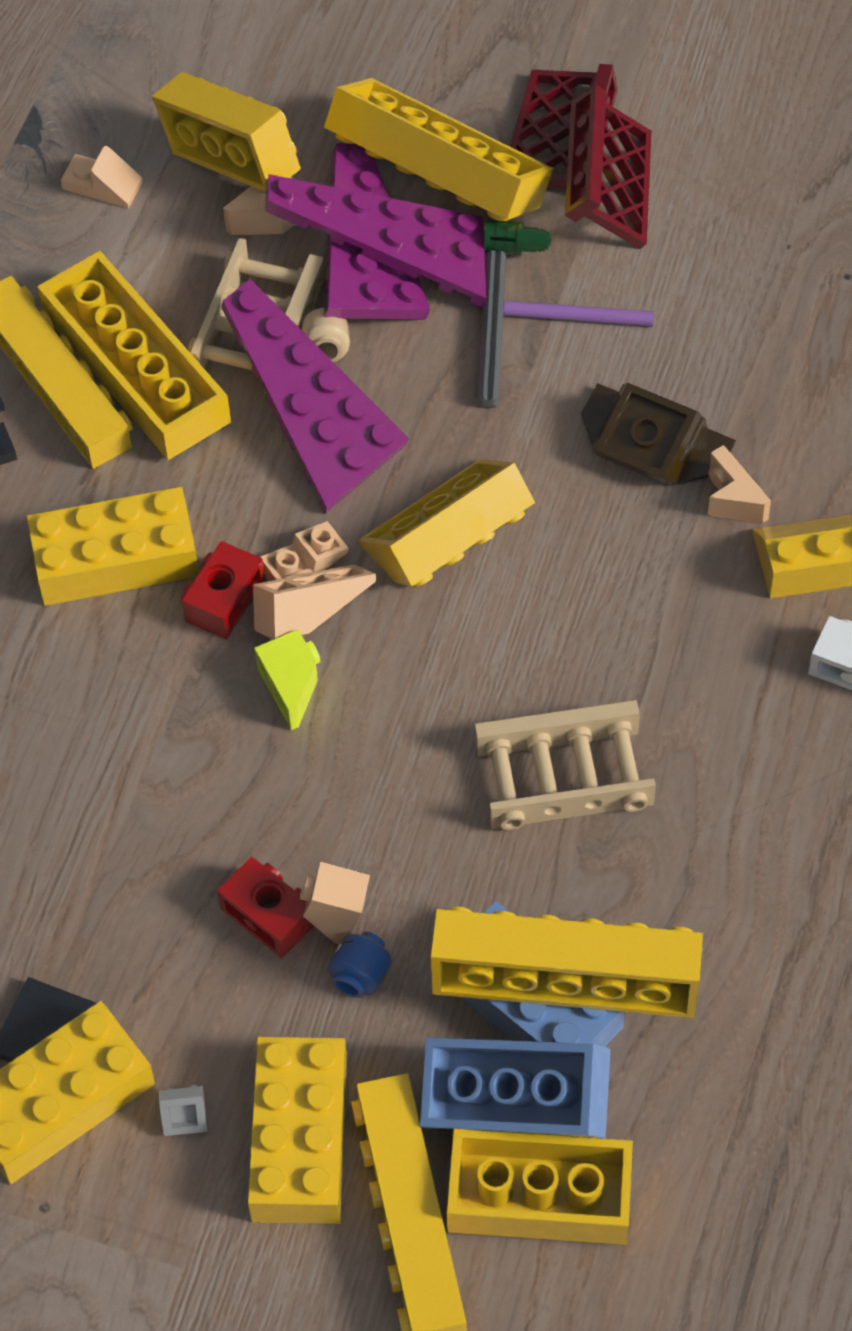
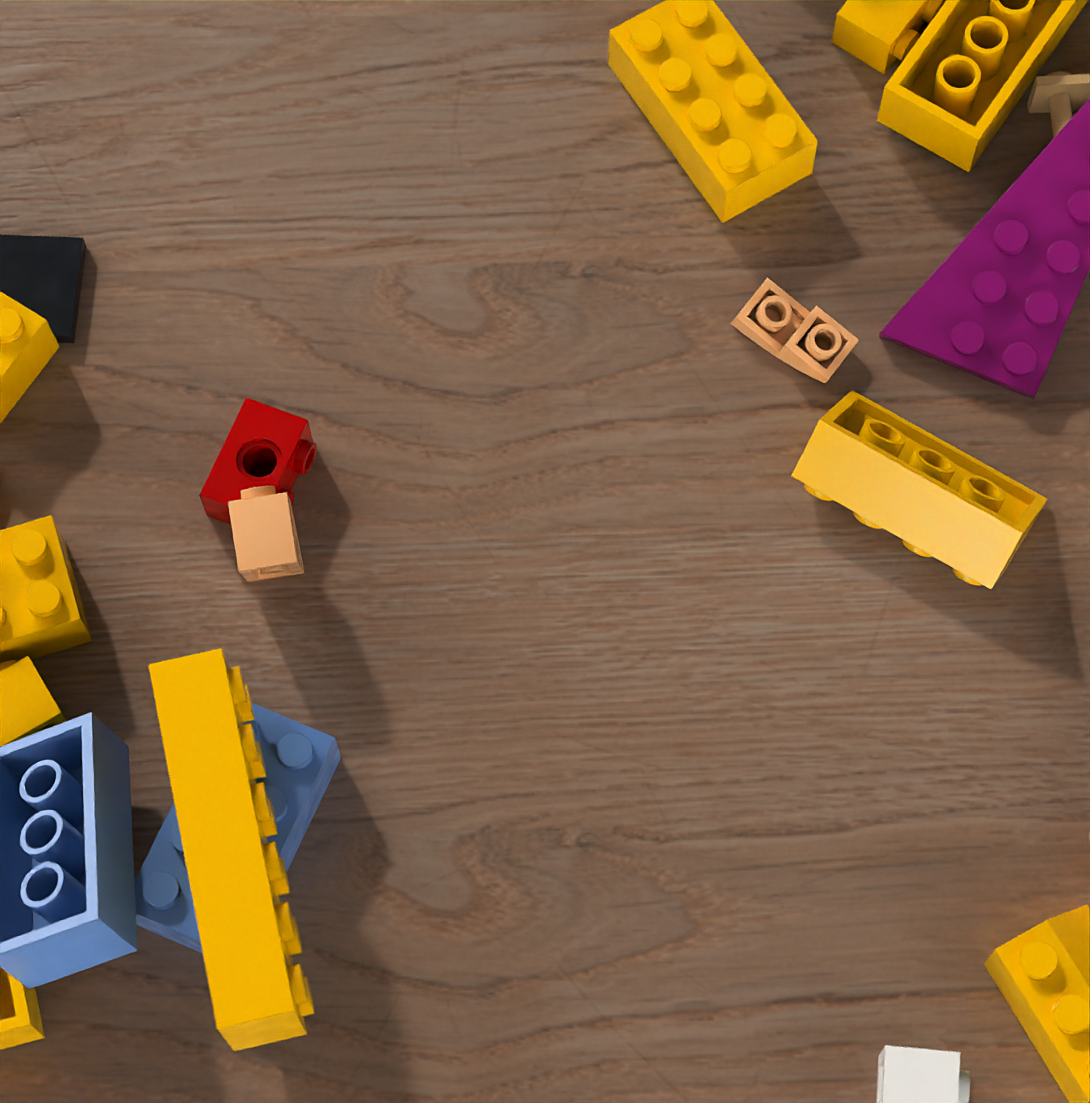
camera: 70 degrees right, 10 degrees up
(222, 609) = (676, 268): red brick -> none
(289, 673) = (602, 377): neon yellow slope -> none
(306, 599) = (718, 354): light nougat slope -> none
(359, 964) = (214, 606): blue head -> none
(561, 728) = (652, 765): tan fence -> none

